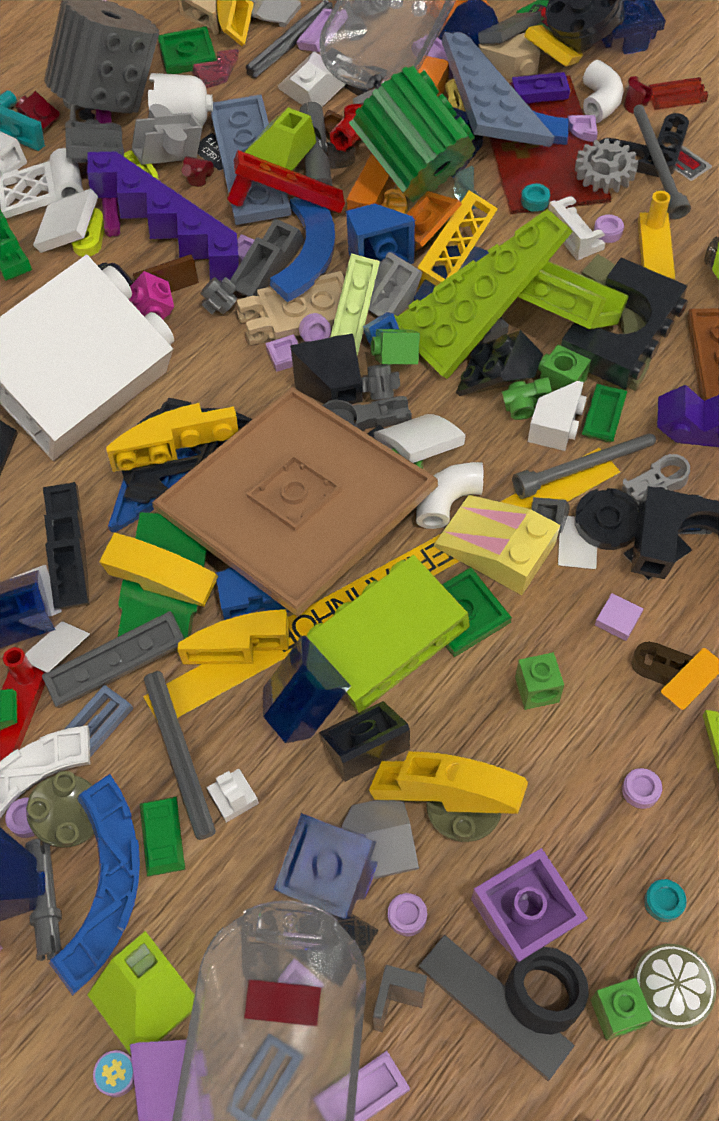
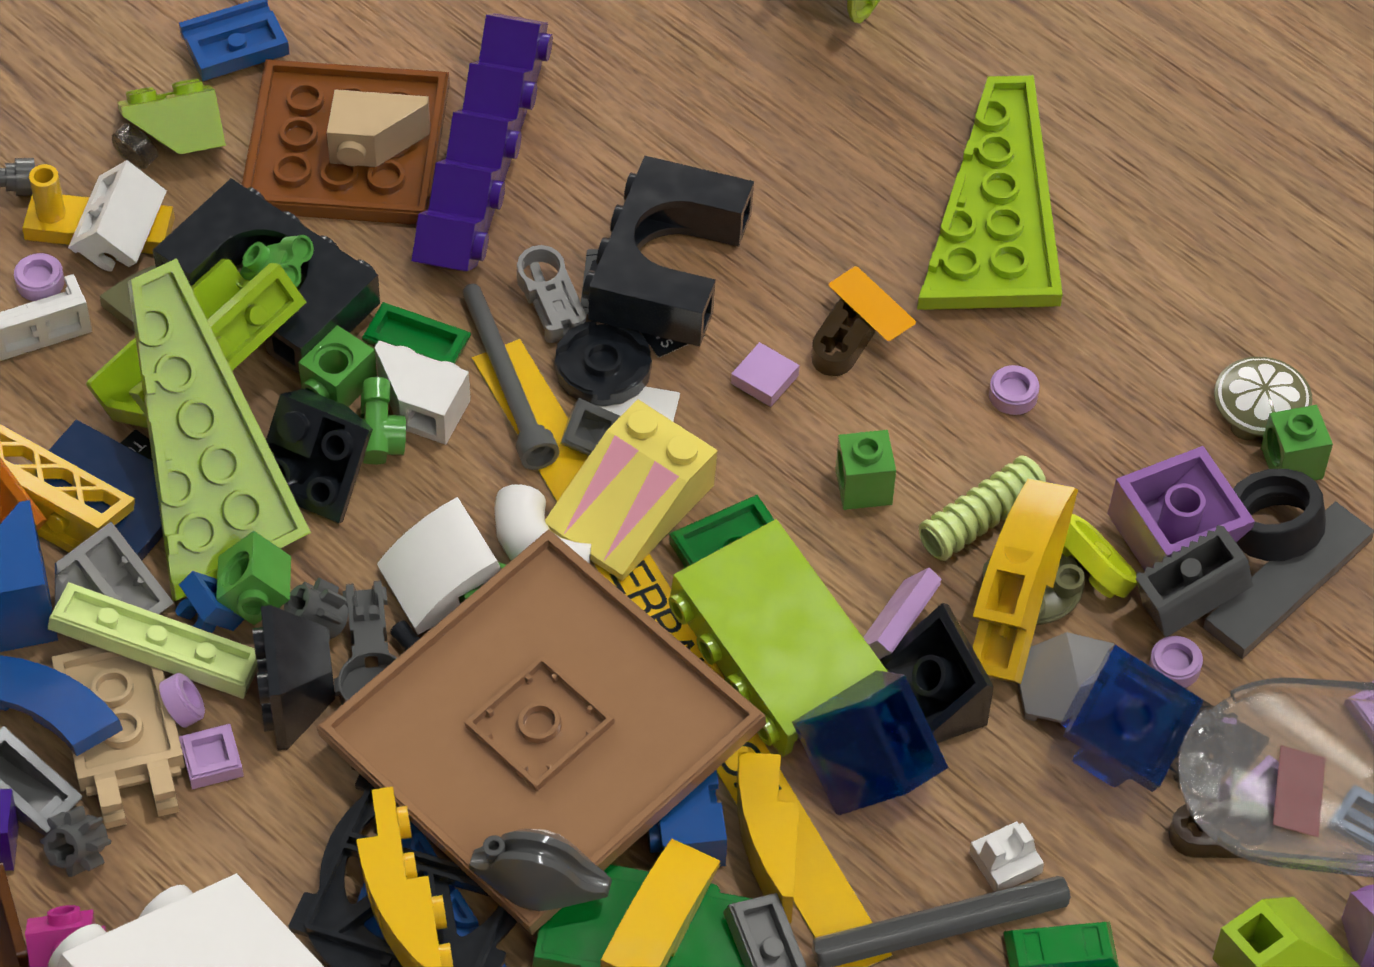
camera: 90 degrees left, 5 degrees down
(183, 497) = (539, 870): none -> dark grey hat
(401, 987) = (1293, 657): dark grey panel -> none
(417, 710) = (901, 612): none -> lavender tile
(464, 917) = (1194, 580): none -> dark grey brick
(488, 850) = (1108, 569): none -> neon yellow plate
(517, 760) = (978, 509): none -> yellowish green piece
(626, 320) = (288, 253): none -> bright green plate
(655, 249) = (118, 216): none -> white hinge
(665, 900) = (1159, 390): teal tile -> none

